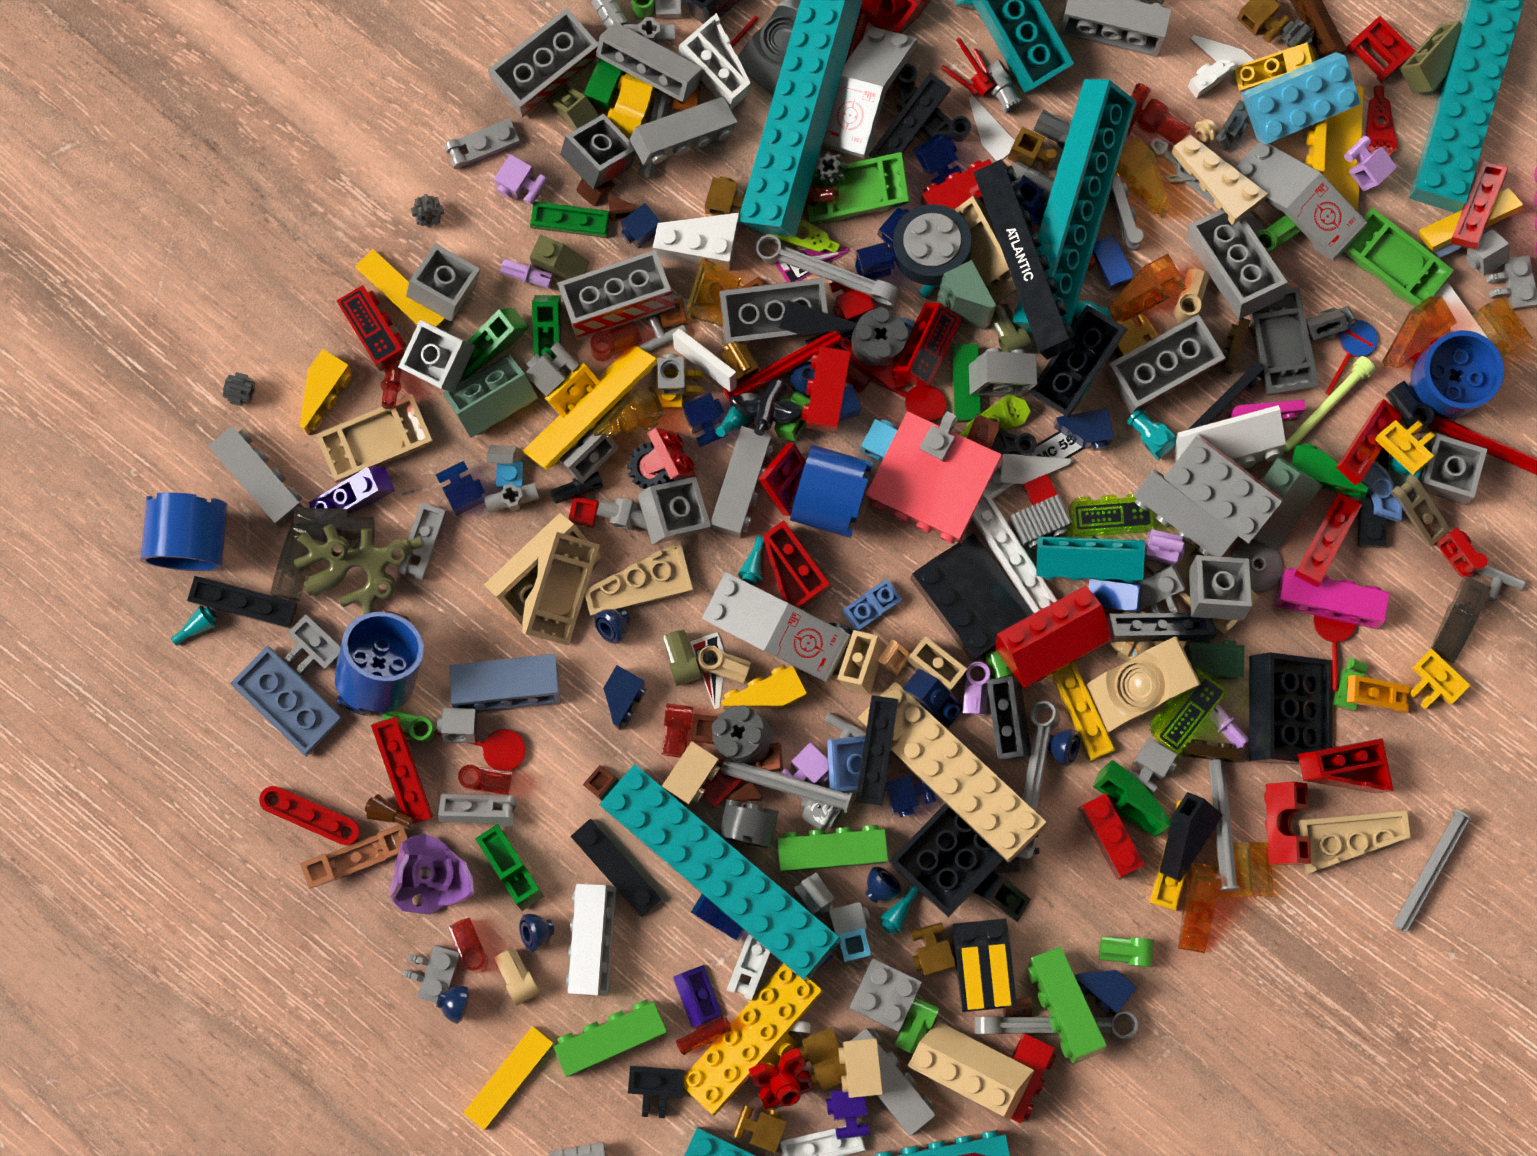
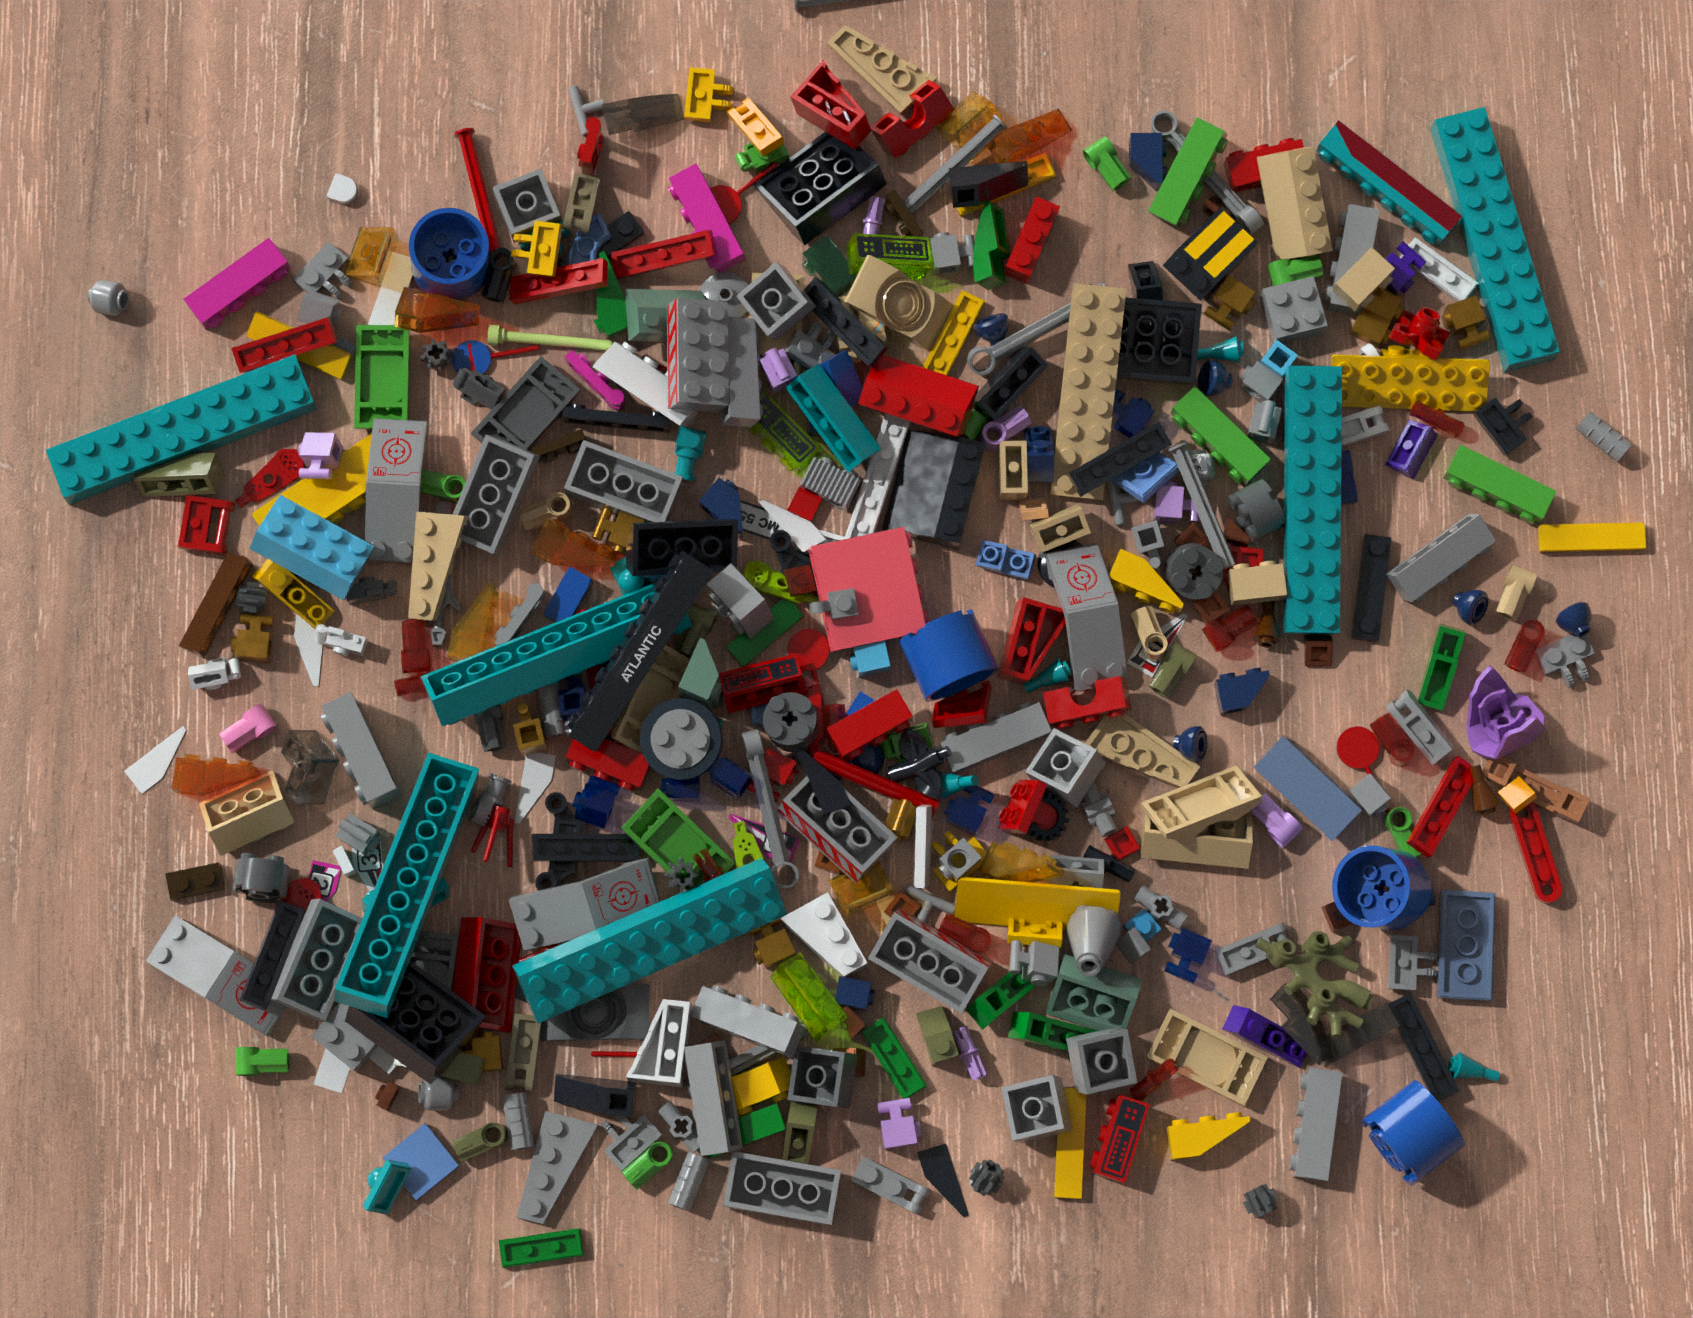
camera: 130 degrees left, 0 degrees up
(361, 836) = (1517, 794): none -> light orange tile
(461, 187) = (941, 1174): none -> black sticker
(494, 639) = (1281, 826): none -> lavender piece
(528, 421) = (1092, 937): none -> light grey cone
(652, 758) = (1267, 632): none -> reddish brown cone
(664, 189) = (808, 997): none -> clear neon green brick
(720, 552) = (1110, 699): none -> red arch
(795, 724) = (1149, 538): none -> light grey brick
(1206, 131) = (394, 608): tan plate -> none
(1374, 312) = (429, 355): none -> dark grey gear

